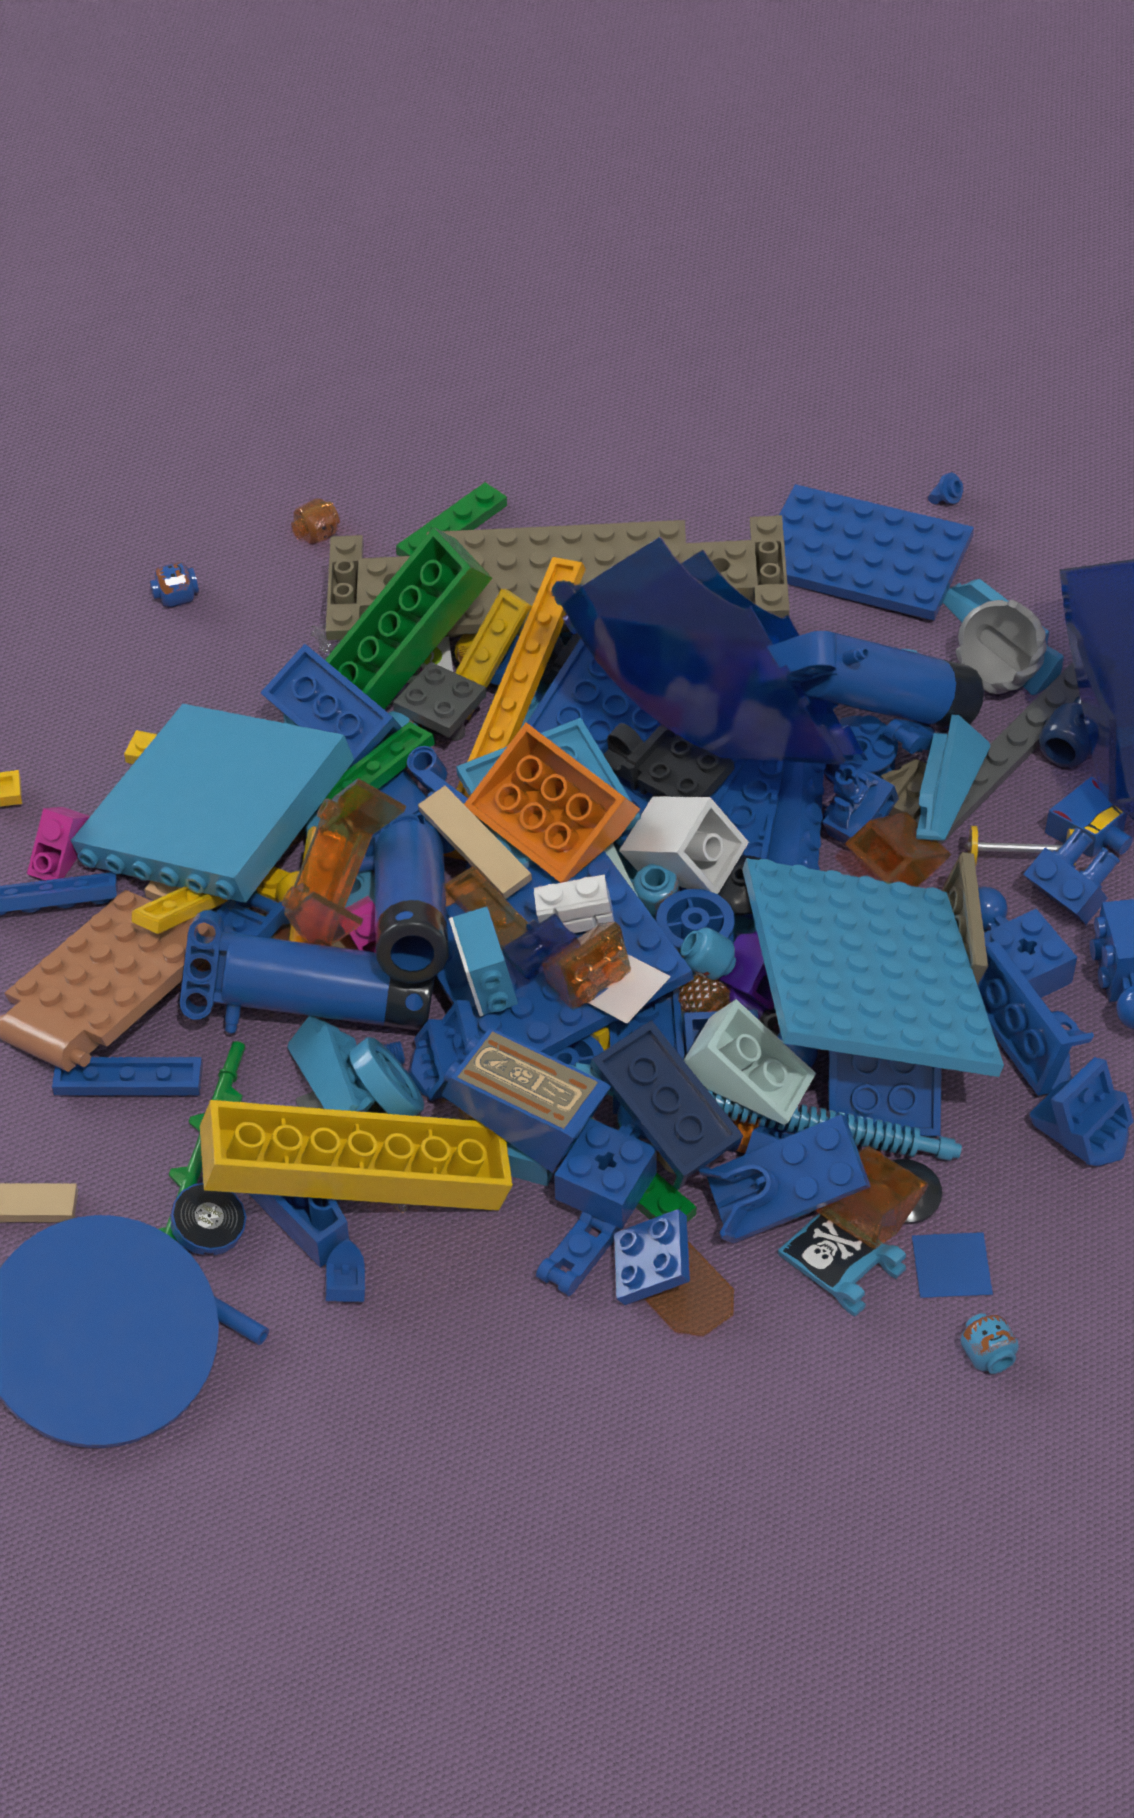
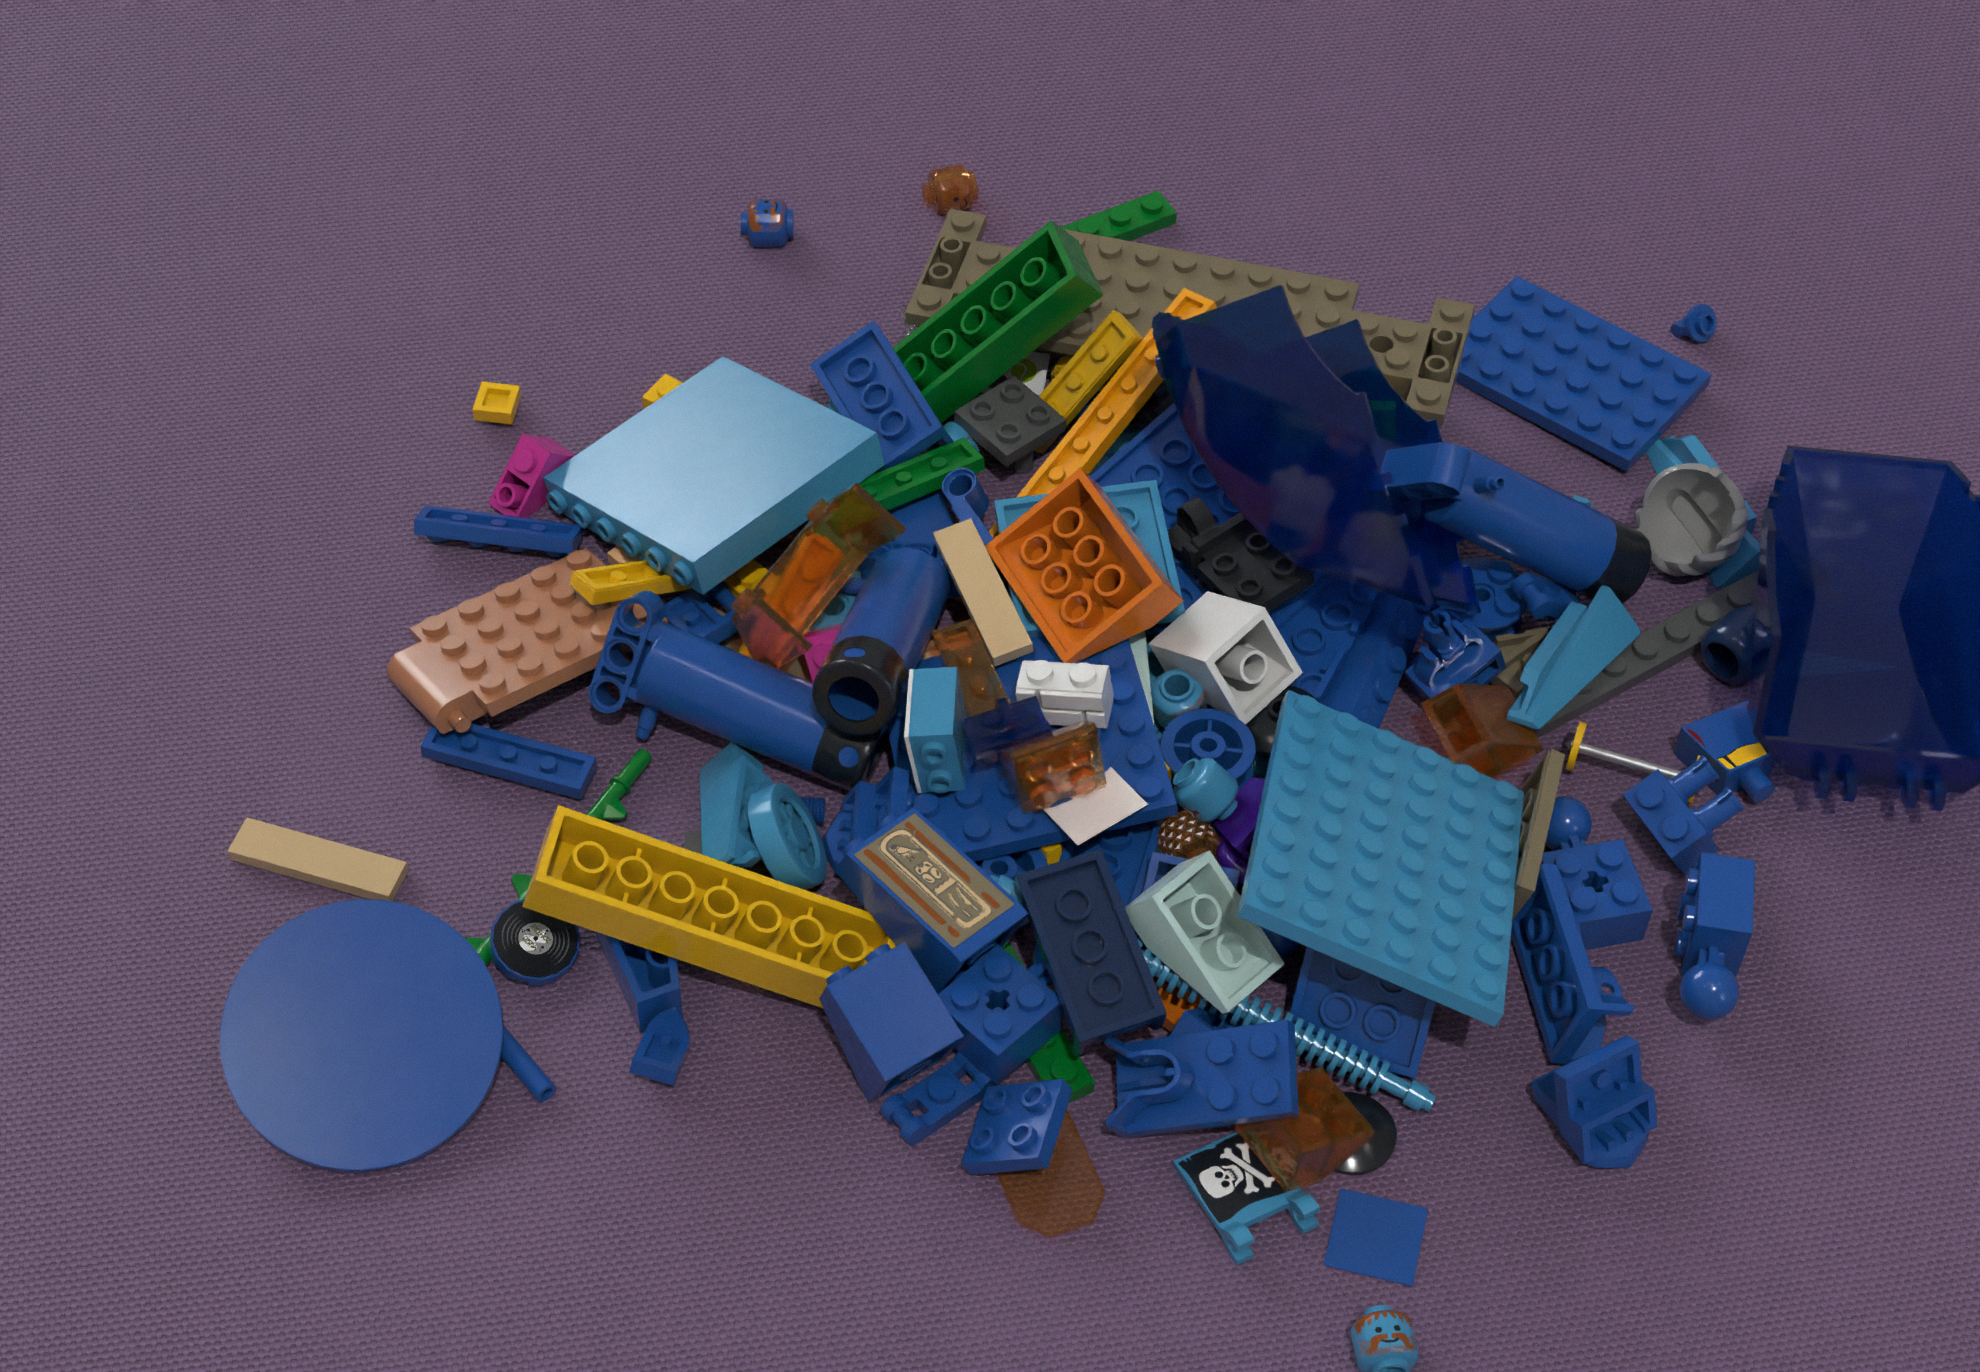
camera: 15 degrees right, 0 degrees up
(524, 1200) = (888, 1020): none -> blue slope

